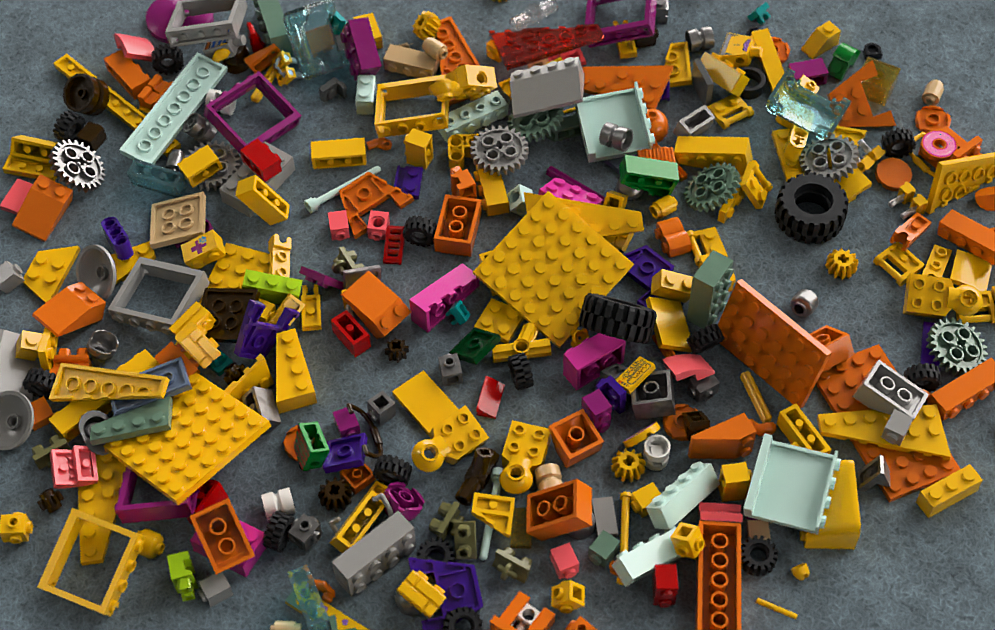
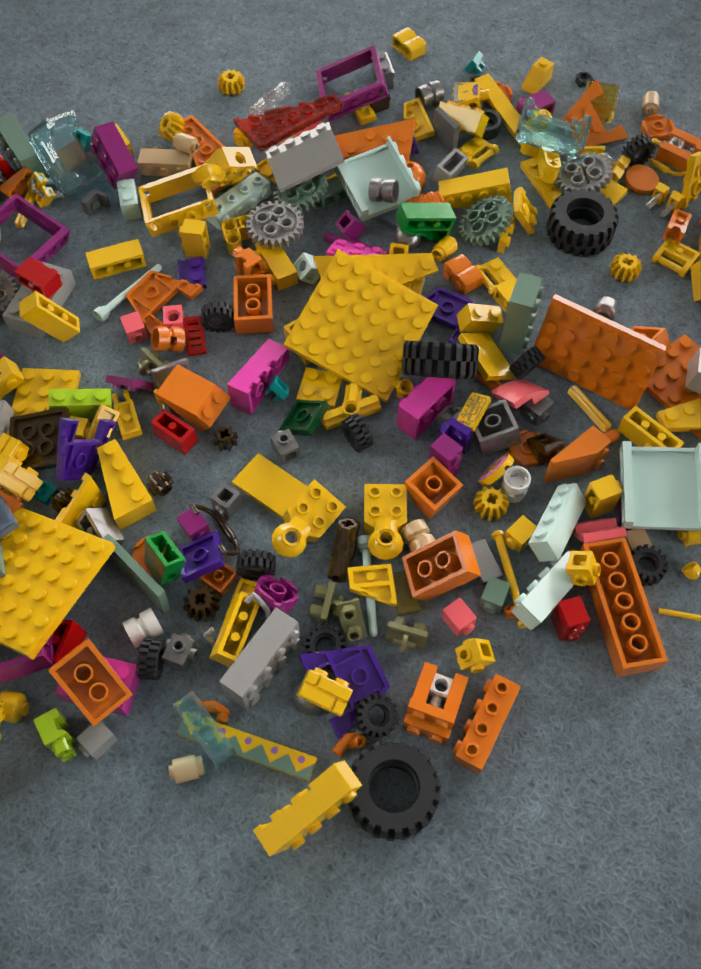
camera: 15 degrees left, 5 degrees up
(279, 256) = (80, 369): yellow plate -> none
(285, 457) = (138, 576): none -> sand green tile
(325, 378) = (159, 483): none -> dark brown gear
(367, 243) = (168, 339): none -> orange wheel
(382, 143) = (154, 242): orange arm -> none
(490, 398) = (333, 466): slope -> none
(575, 165) = (350, 225): none -> magenta brick
(842, 58) = (563, 89): green brick -> none
(942, 138) = (673, 138): tile -> none

